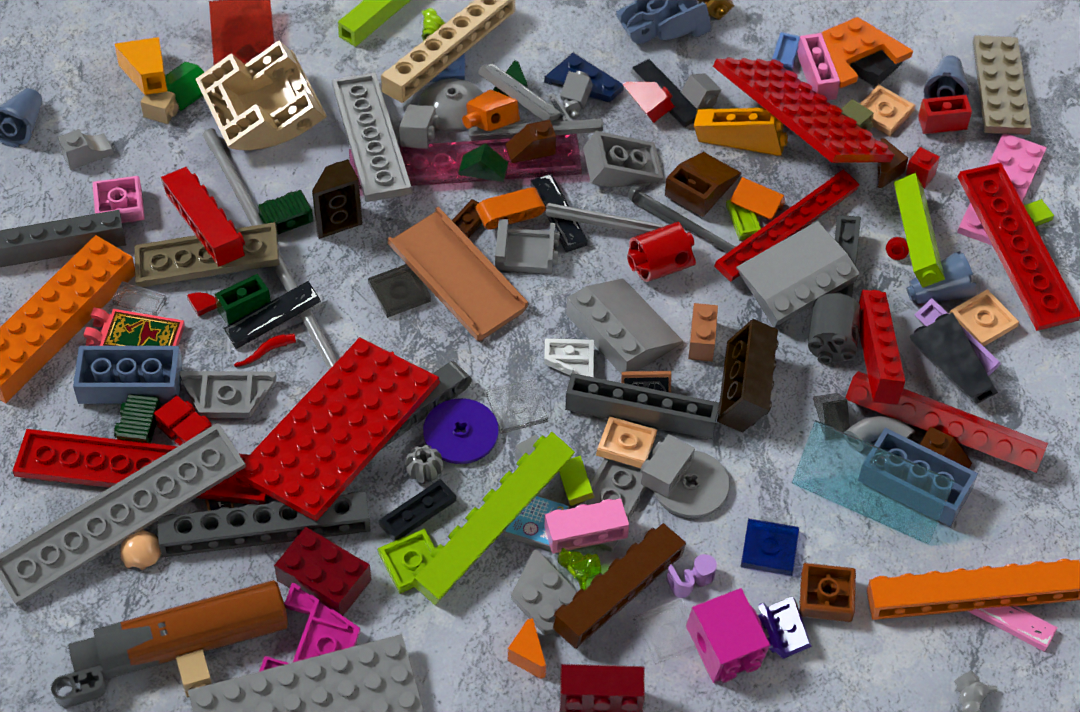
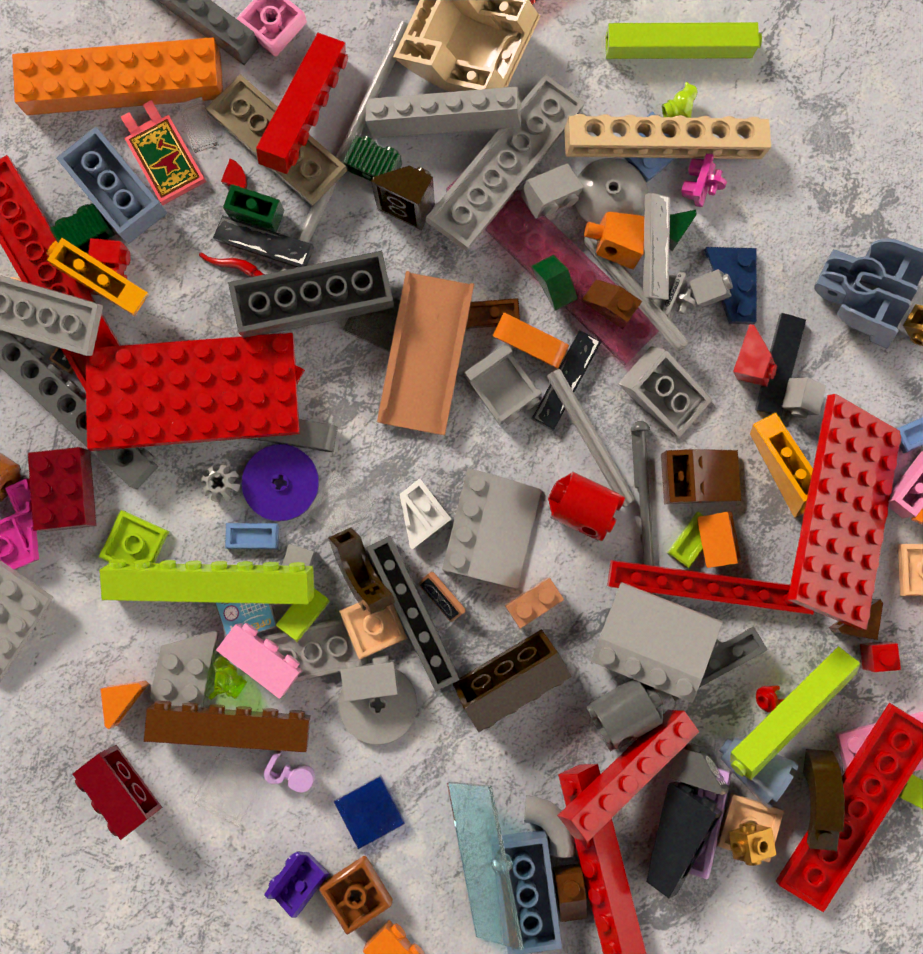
camera: 50 degrees right, 30 degrees up
(184, 417) = (96, 276): none -> light orange slope
(227, 392) = (165, 273): light grey wing -> none
(299, 144) = (444, 112): none -> light grey brick
(346, 302) = (311, 294): none -> dark grey brick
(417, 510) = (177, 512): black plate -> none
(483, 478) = (252, 536): none -> medium blue tile
(500, 46) = (706, 180): none -> dark pink hips
(579, 422) = (358, 572): none -> dark brown arch
(728, 635) = (242, 853): dark pink brick -> none
(833, 411) = (542, 768): clear smoke slope -> none
(859, 113) = (893, 556): olive brick -> none
(914, 313) = (698, 770): none -> dark grey slope
(992, 312) = (752, 843): none -> pearl gold brick
(999, 250) = (826, 799): none -> dark brown arch

